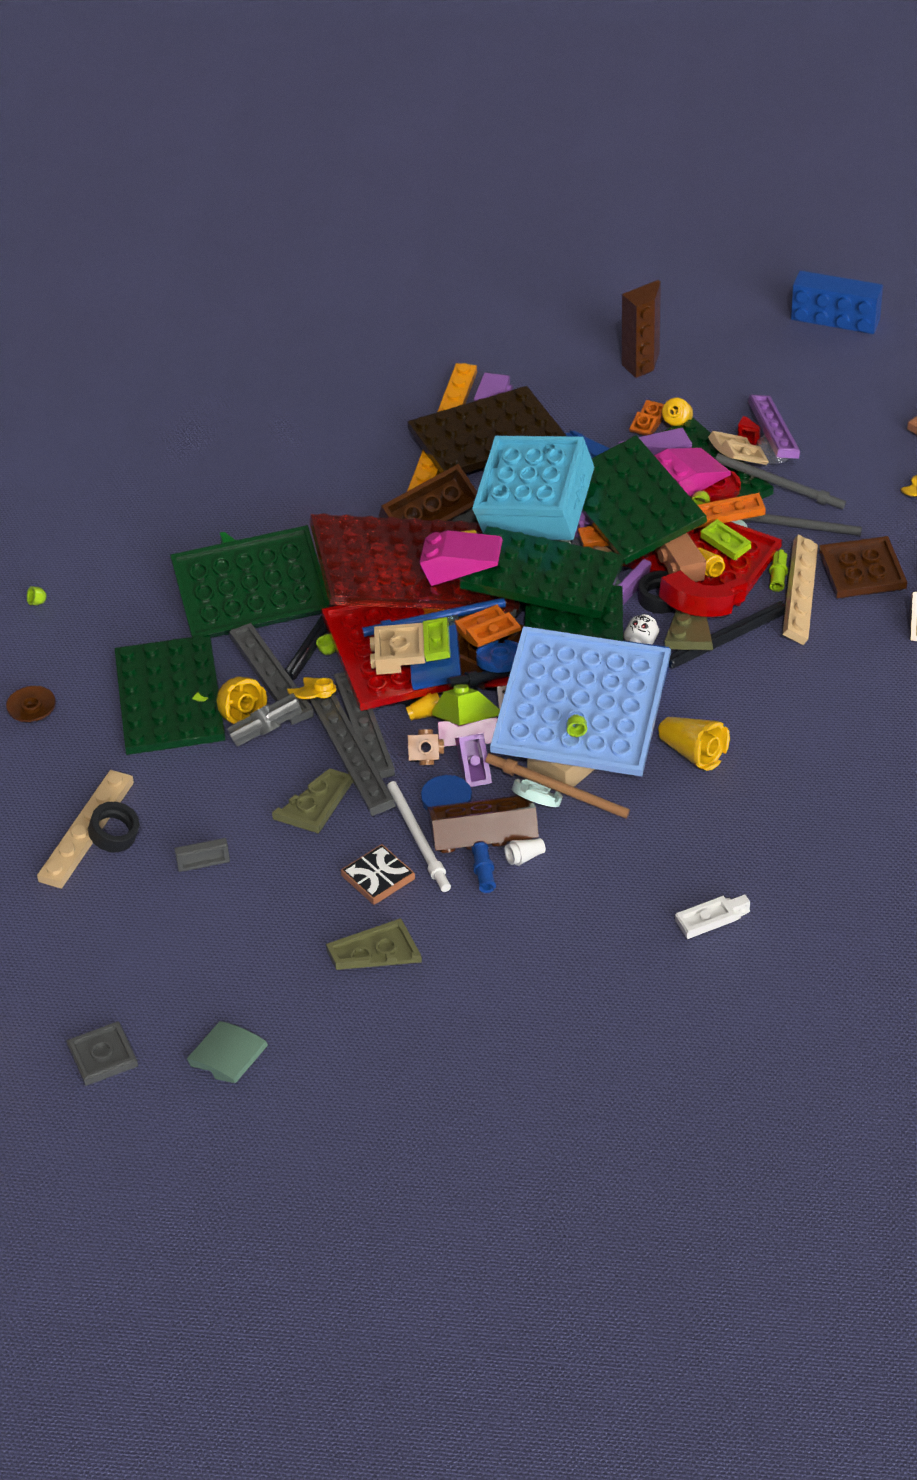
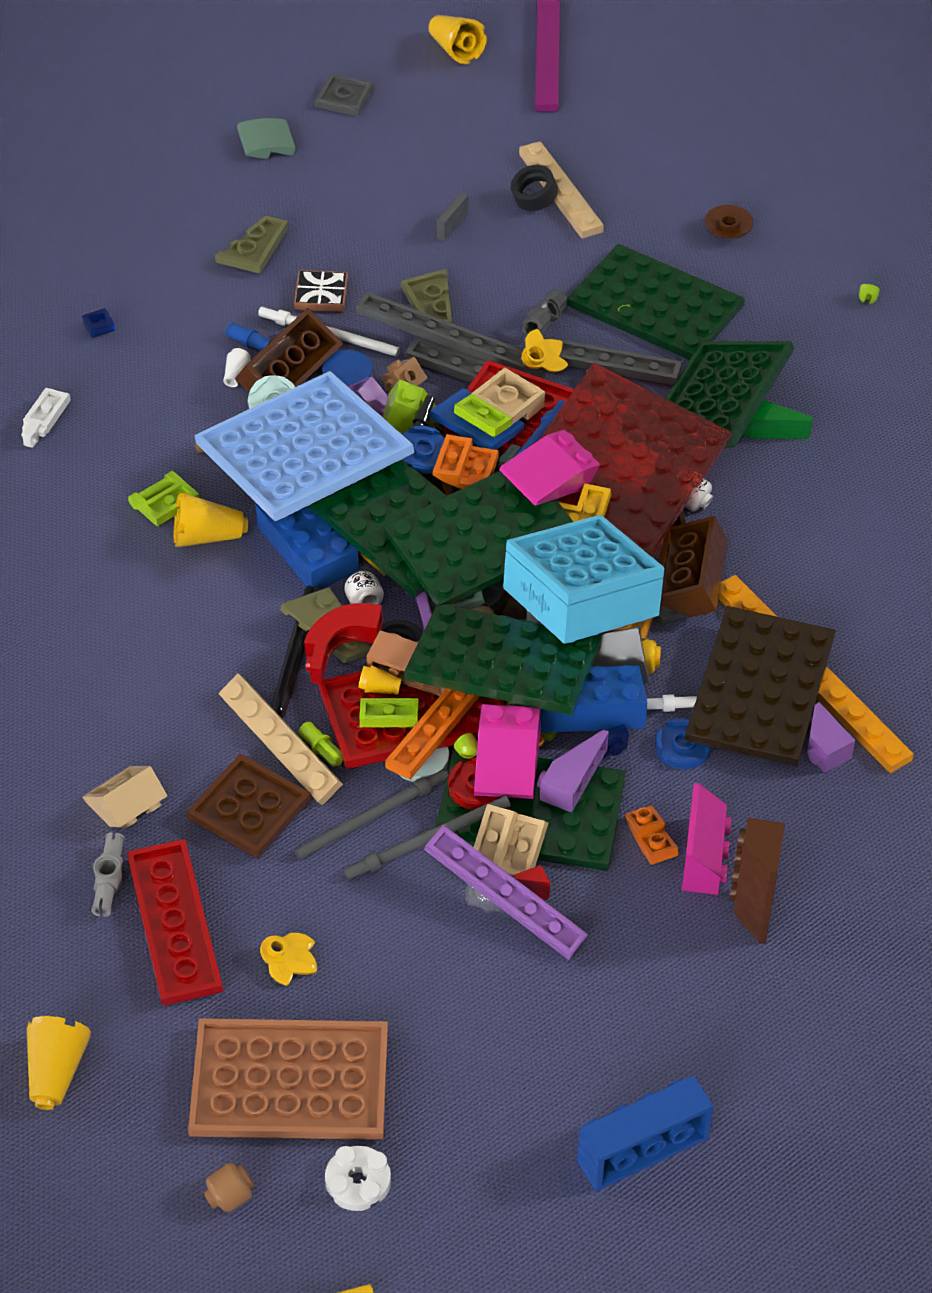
camera: 130 degrees right, 5 degrees up
(240, 698) = (587, 317): yellow cylinder -> none
(580, 725) = (275, 413): lime hinge -> none
(581, 967) = (98, 322): none -> clear blue plate
(634, 389) = (706, 843): none -> dark pink slope
(675, 405) = (623, 845): yellow head -> none
(695, 782) = (160, 499): none -> lime plate

